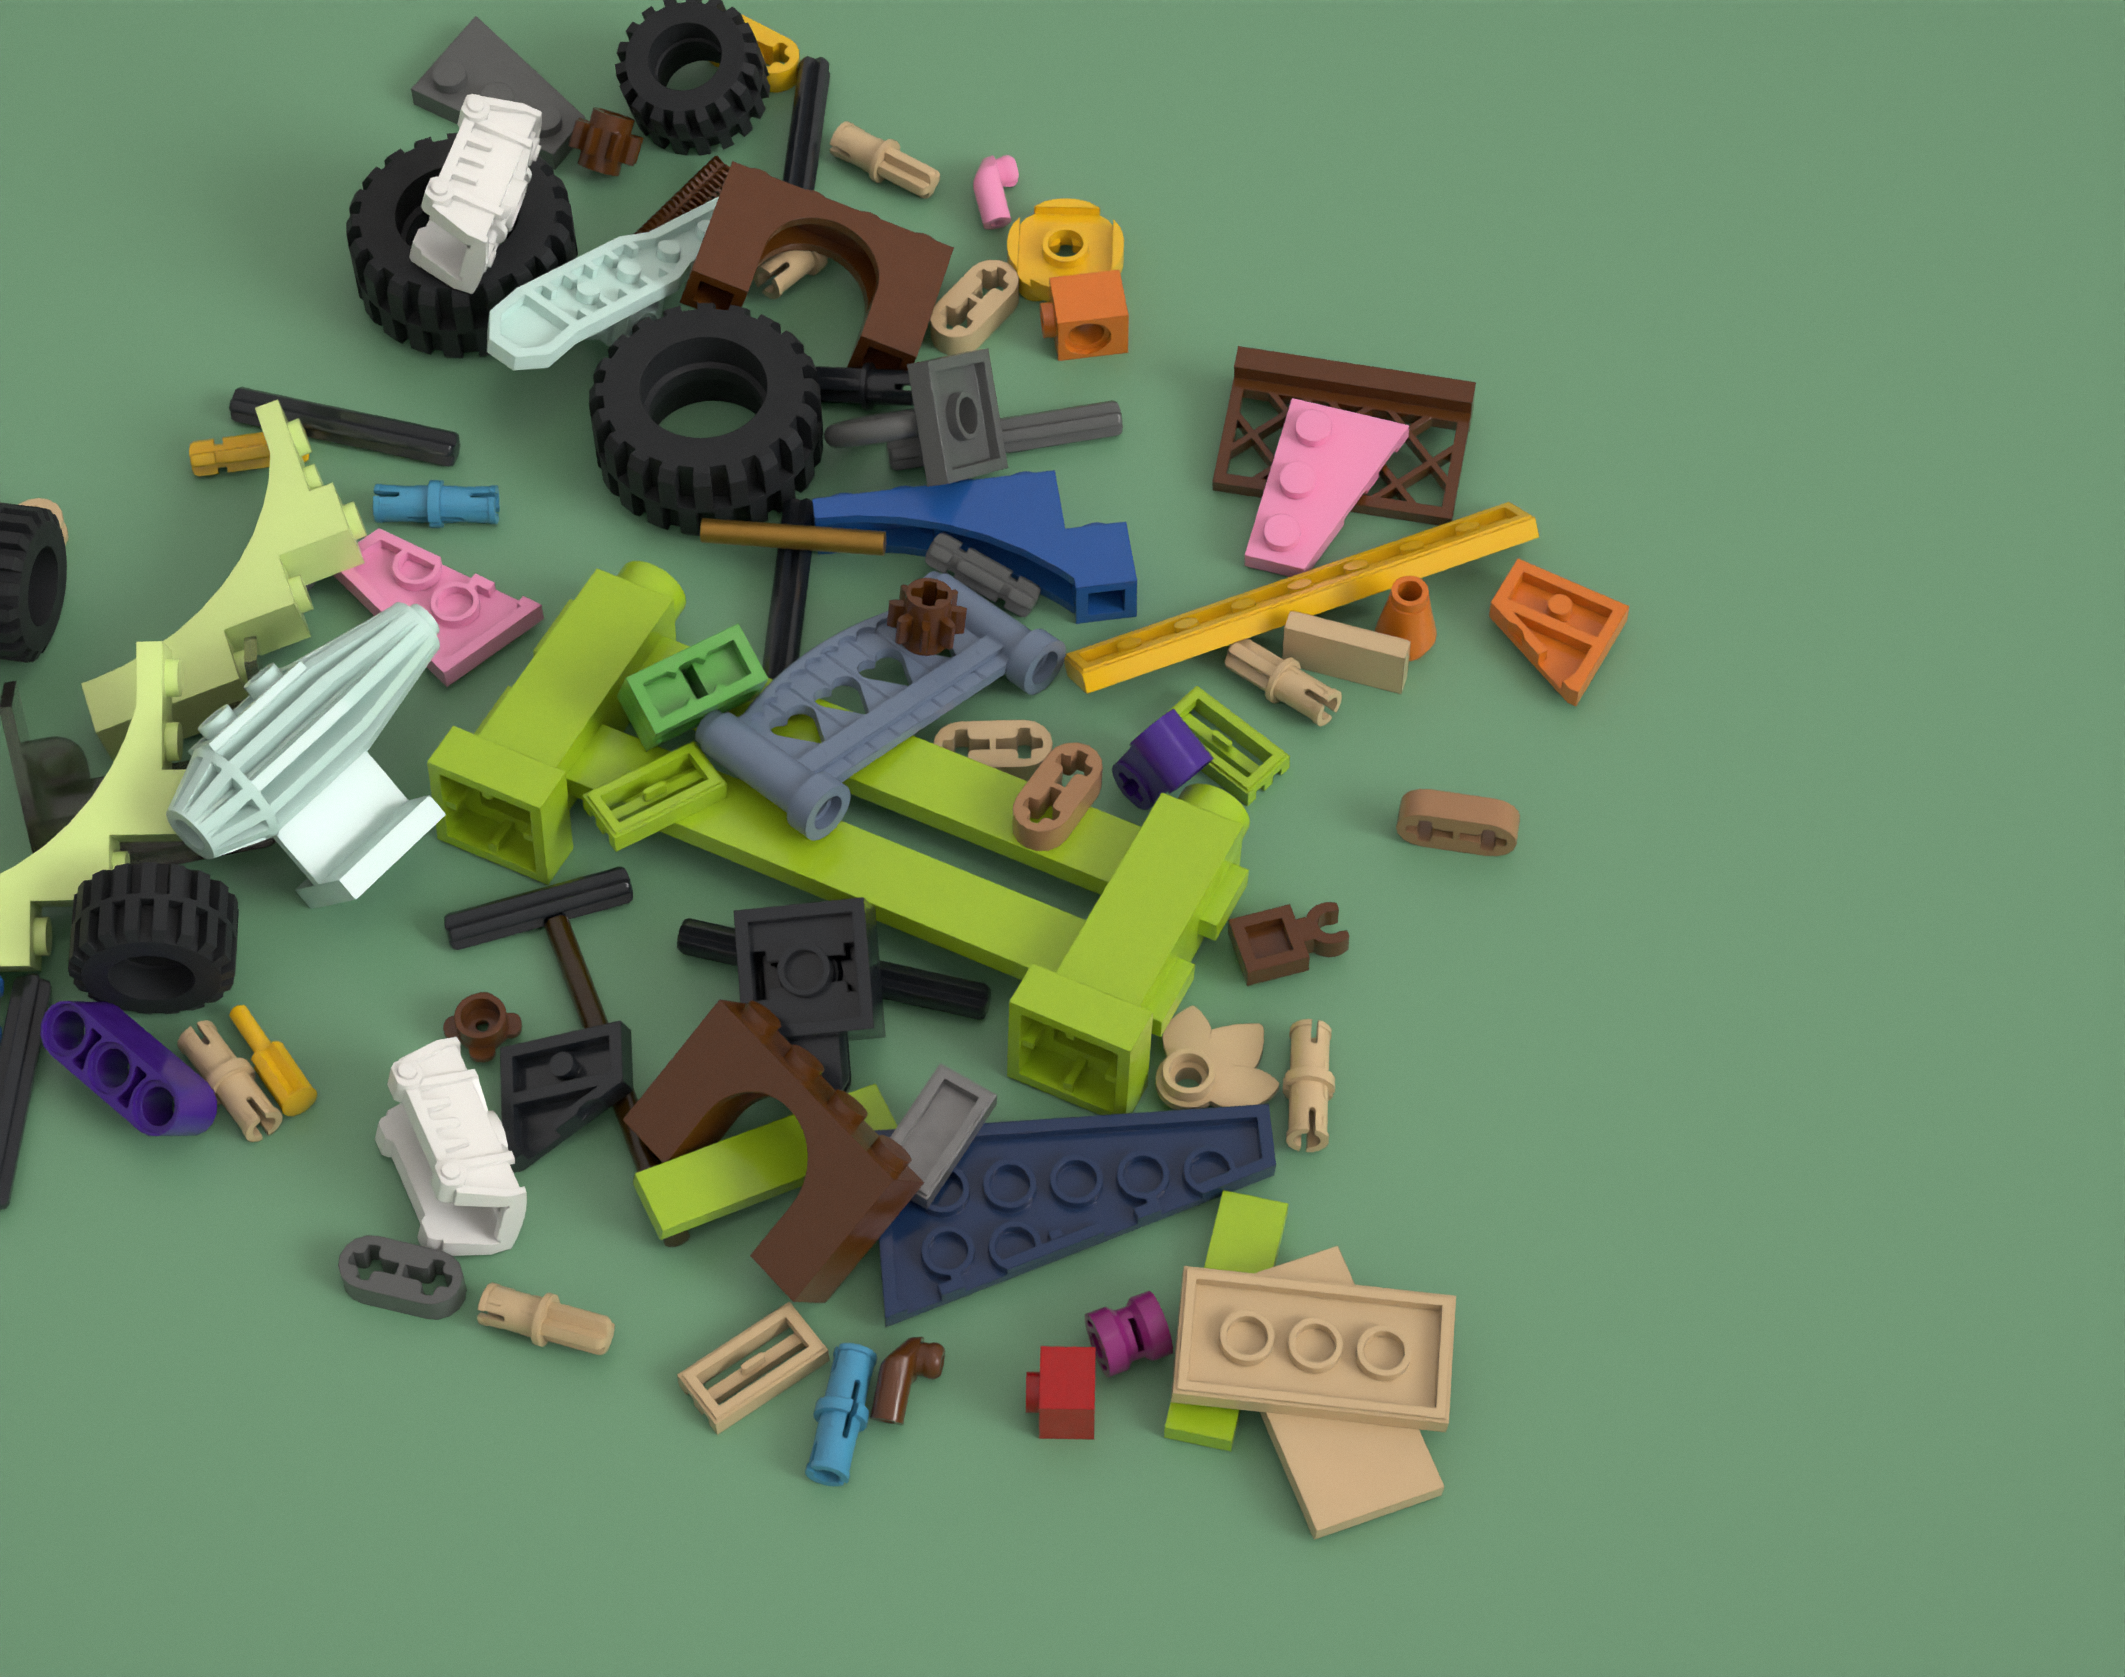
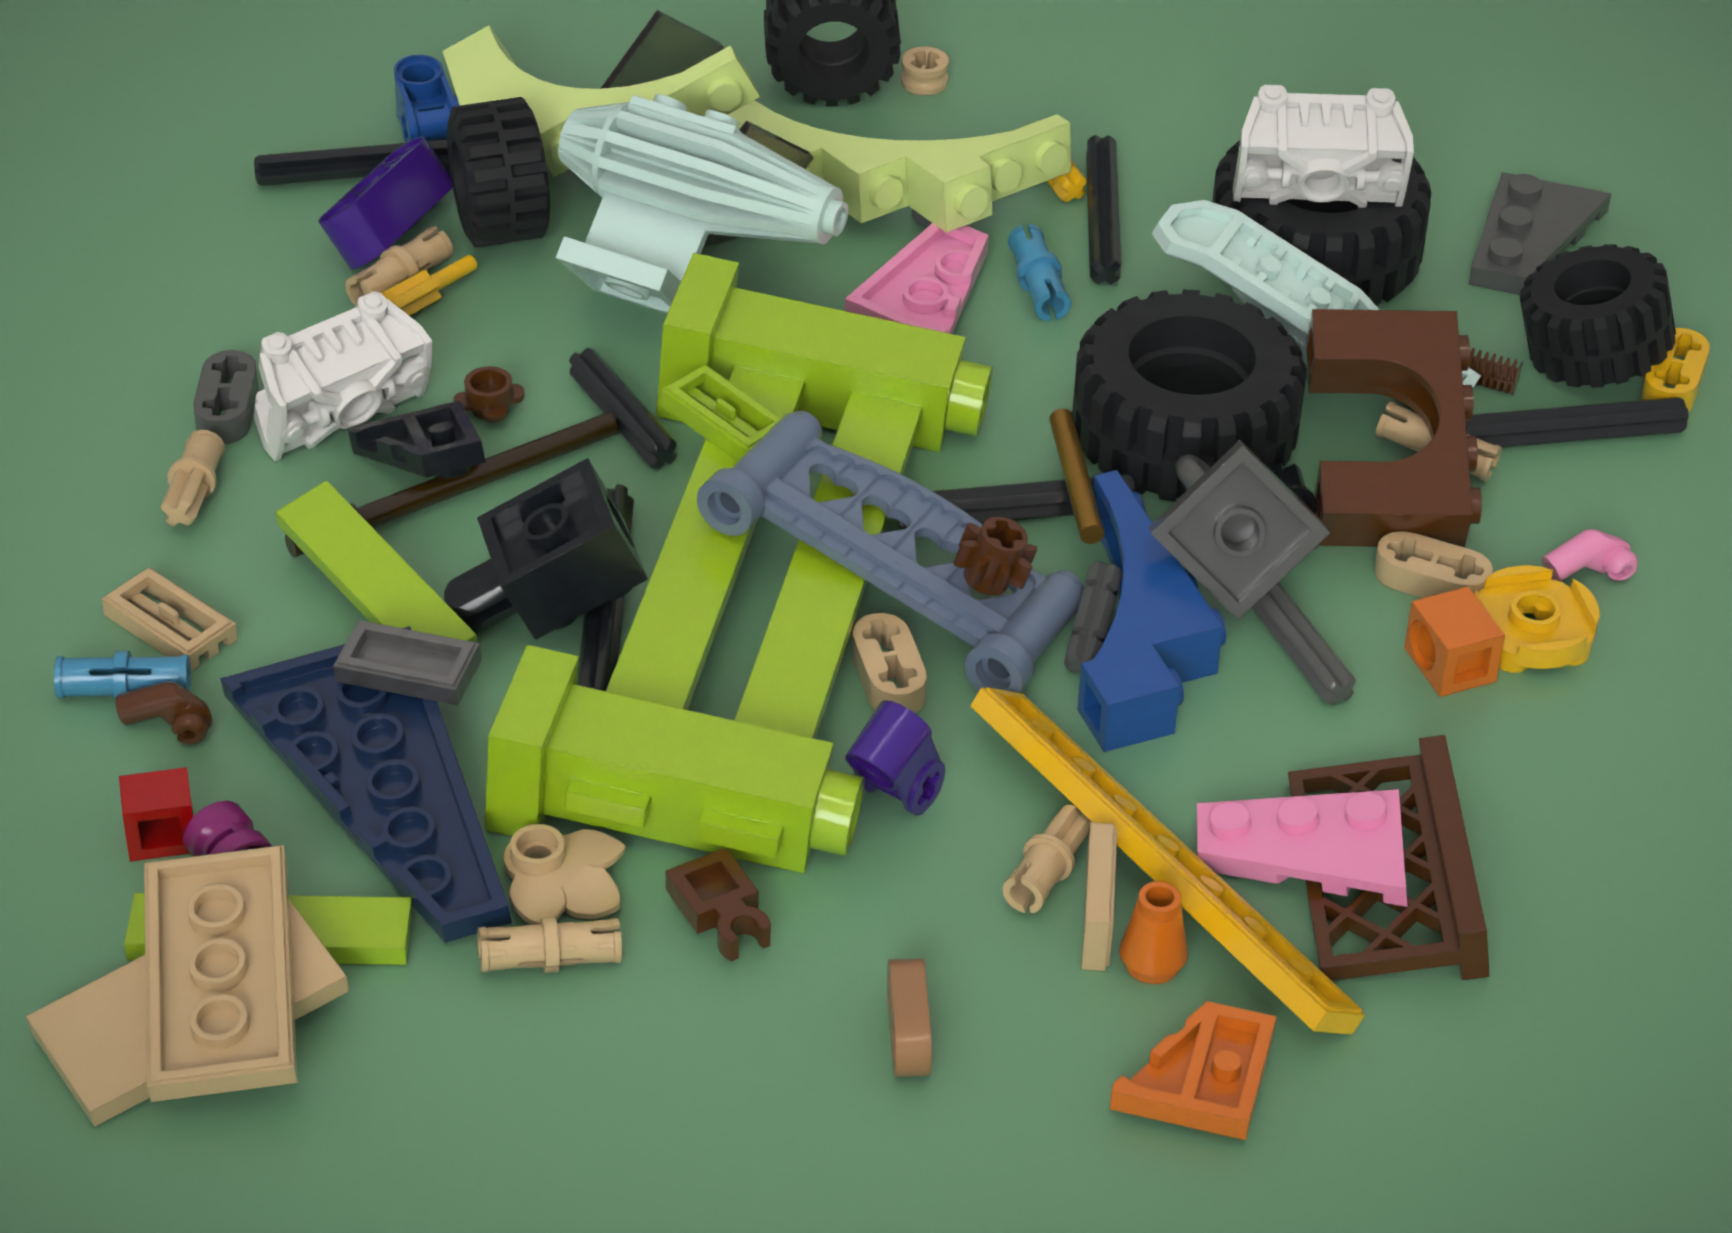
camera: 75 degrees right, 15 degrees down
(606, 141) = (1494, 287): reddish brown gear -> none
(690, 684) = (847, 400): bright green brick -> none
(852, 1174) = (415, 521): reddish brown arch -> none
(883, 160) = (1585, 475): tan axle -> none
(1068, 802) = (813, 678): medium nougat beam -> none
(1231, 767) = (937, 863): lime tile -> none

